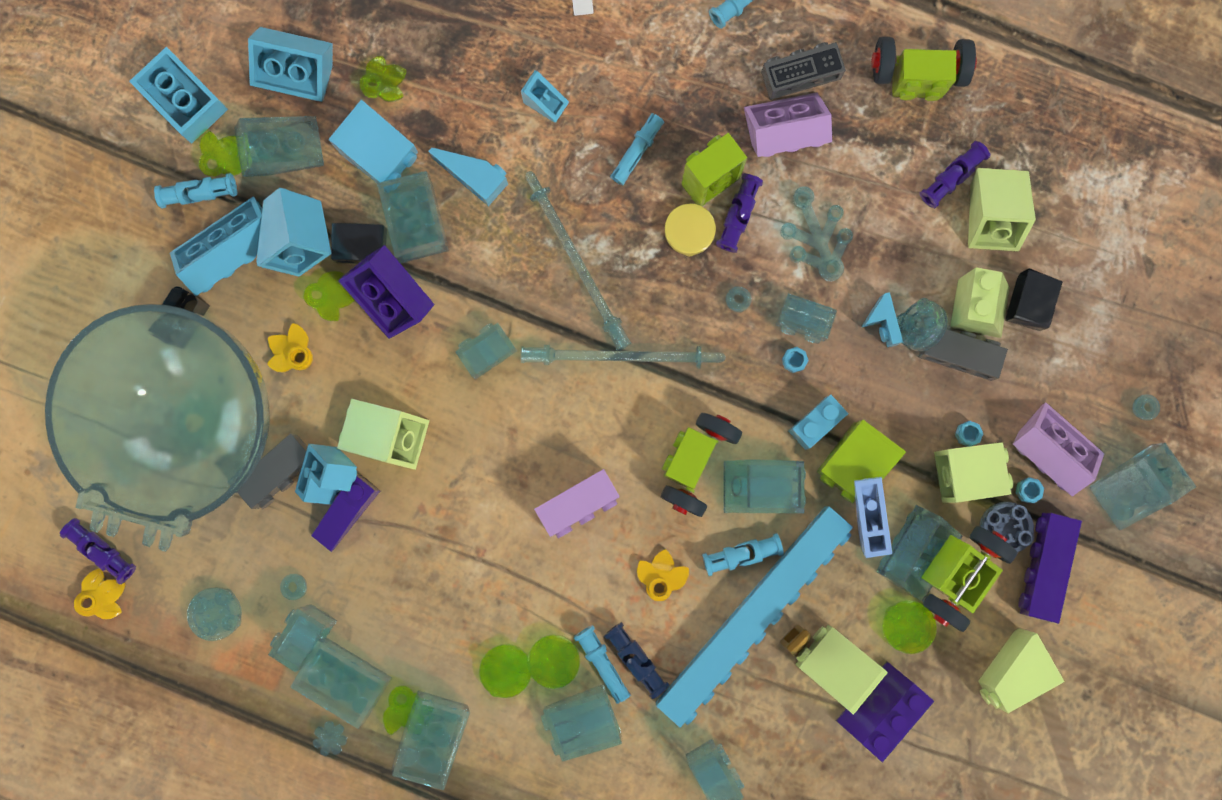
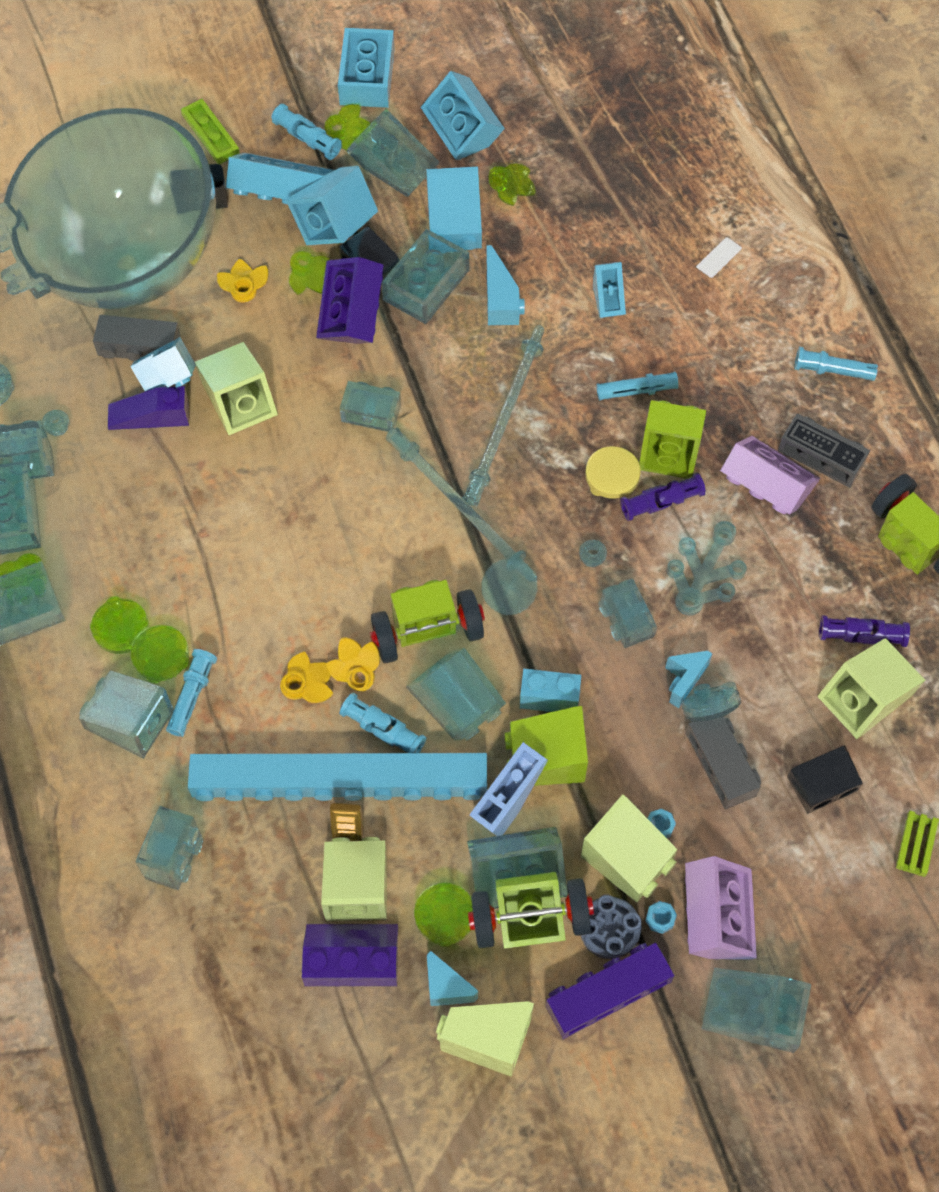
camera: 45 degrees right, 20 degrees down
(127, 262) = (210, 131): none -> lime plate
(577, 504) = (308, 560): lavender brick -> none
(639, 664) = (217, 712): dark blue piece -> none
(683, 536) = (355, 659): none -> yellow plate
(716, 380) = (509, 586): none -> clear light blue tile
(795, 360) = (585, 635): medium azure tile -> none
(959, 667) = (446, 985): none -> medium azure slope
(980, 302) = (779, 735): yellowish green slope -> none
(1129, 278) = (922, 820): none -> lime tile
(1139, 410) = (827, 965): clear light blue plate -> none

